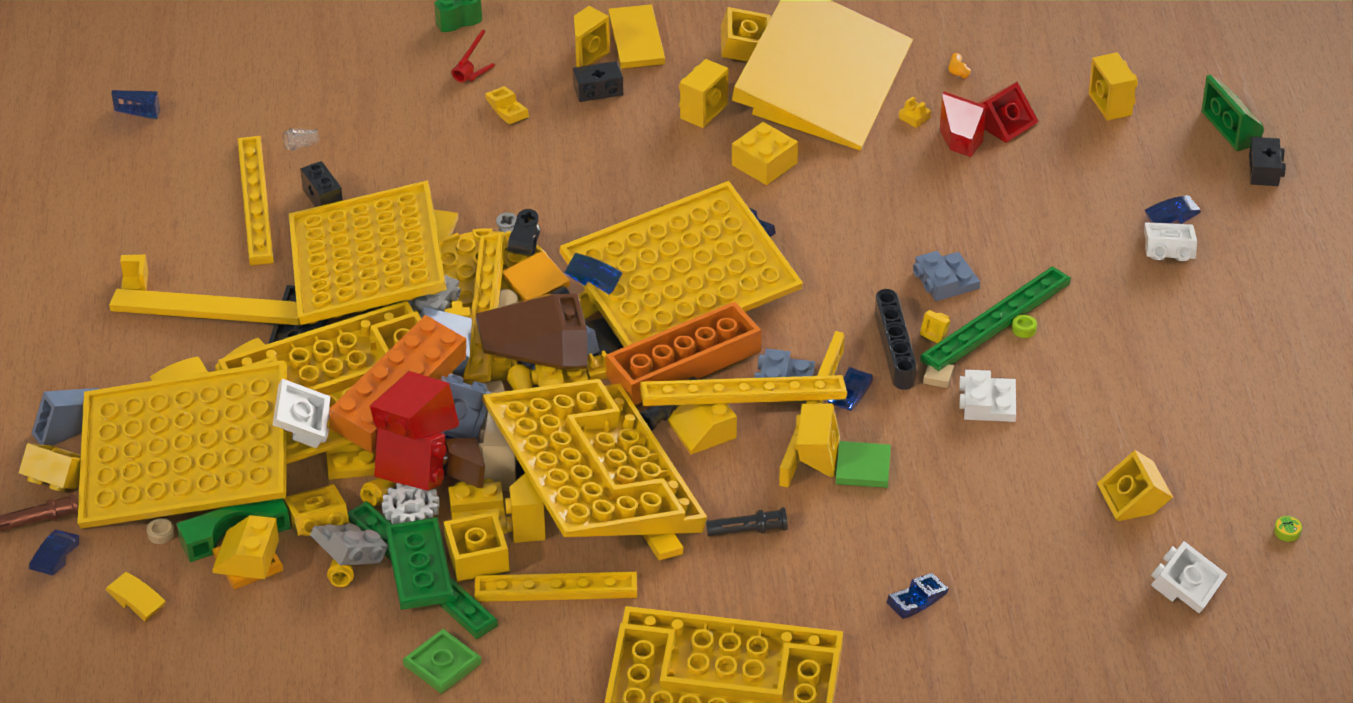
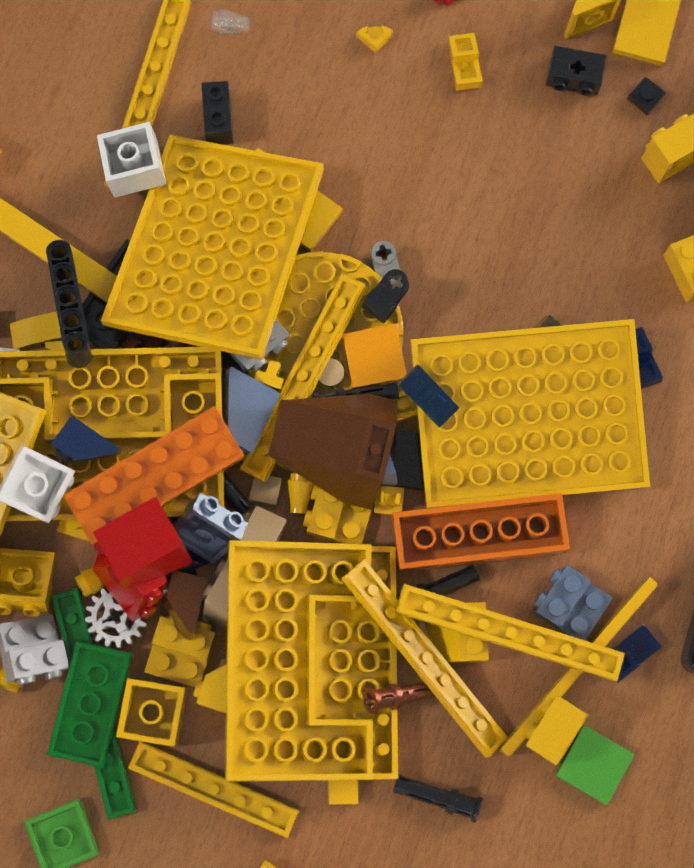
camera: 20 degrees right, 35 degrees up
(266, 313) = (63, 268): none -> black beam
(268, 225) = (131, 159): none -> white brick
(330, 378) = (82, 443): none -> dark blue slope
(424, 115) = (374, 36): none -> yellow tile
(662, 81) = (646, 96): none -> black plate
(673, 461) = (394, 696): none -> copper pin
(684, 434) = (425, 659): none -> yellow tile

